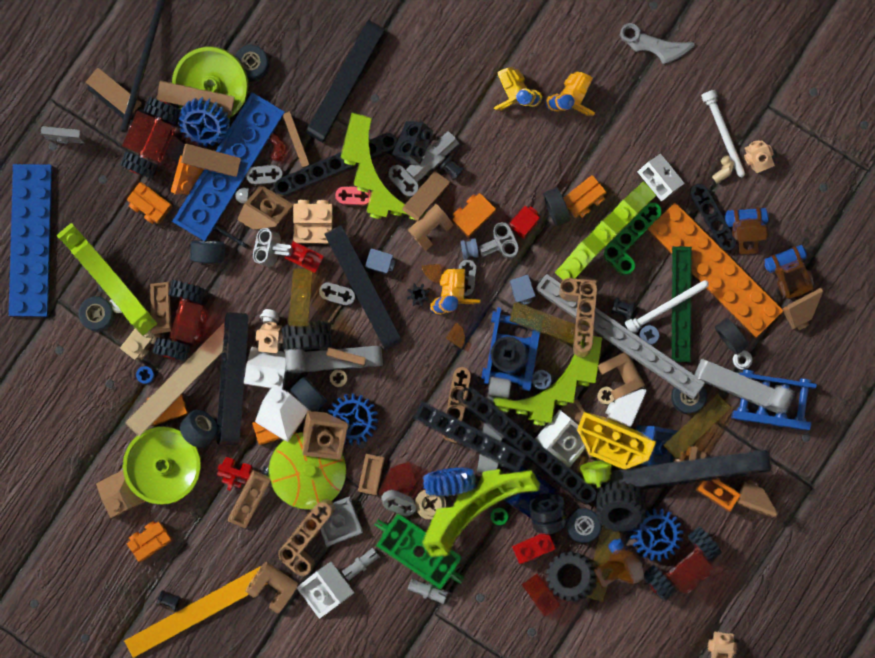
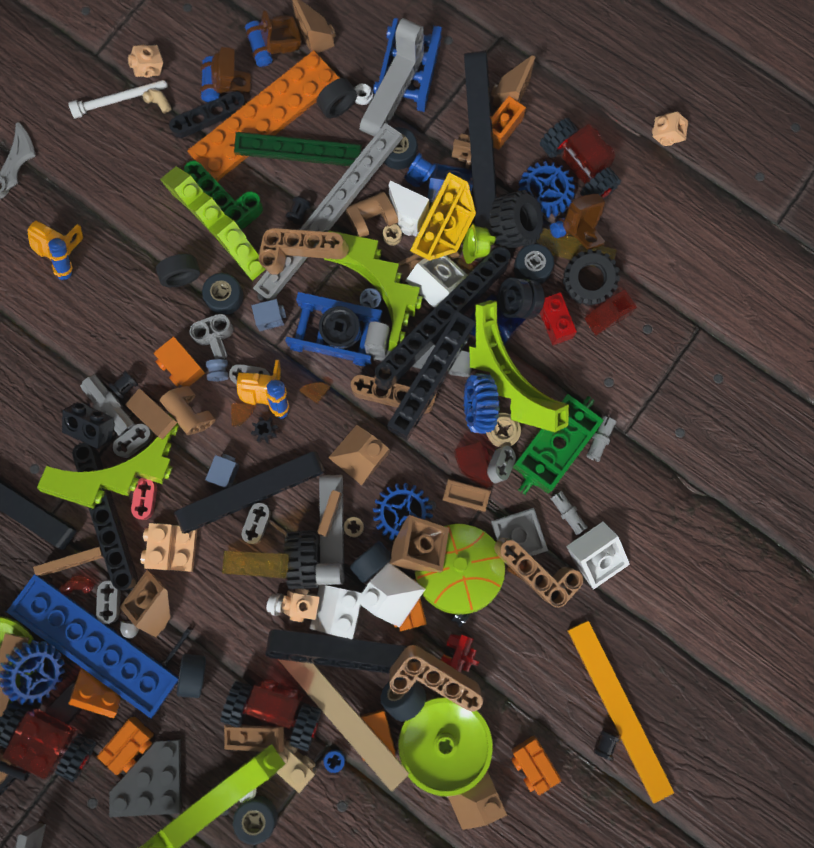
camera: 90 degrees left, 5 degrees down
(120, 226) = (151, 784): none -> dark grey plate
(205, 479) = (465, 692): none -> medium nougat beam
(210, 160) = (78, 666): medium nougat tile -> none
(249, 499) = (490, 639): medium nougat tile -> none
(270, 247) = (194, 598): light grey beam -> none
(284, 584) = (581, 617): medium nougat connector -> none
(305, 257) = (208, 559): red hips -> none
(402, 378) = (359, 454): none -> medium nougat slope
(499, 522) = (525, 350): green bush -> none
(516, 89) = (42, 304): yellow piece -> none
(524, 221) = (191, 304): red brick -> none
(541, 241) = (217, 287): none -> black wheel
(543, 323) = (307, 290): clear yellow tile -> none
(584, 196) = (168, 238): orange brick -> none
(635, 324) = (316, 197): white piece -> none
(645, 334) = (325, 179): sand blue wheel -> none
(660, 177) = (157, 160): white brick -> none
(665, 417) = (419, 171): none -> blue piece
(697, 426) = (433, 141): clear yellow tile -> none

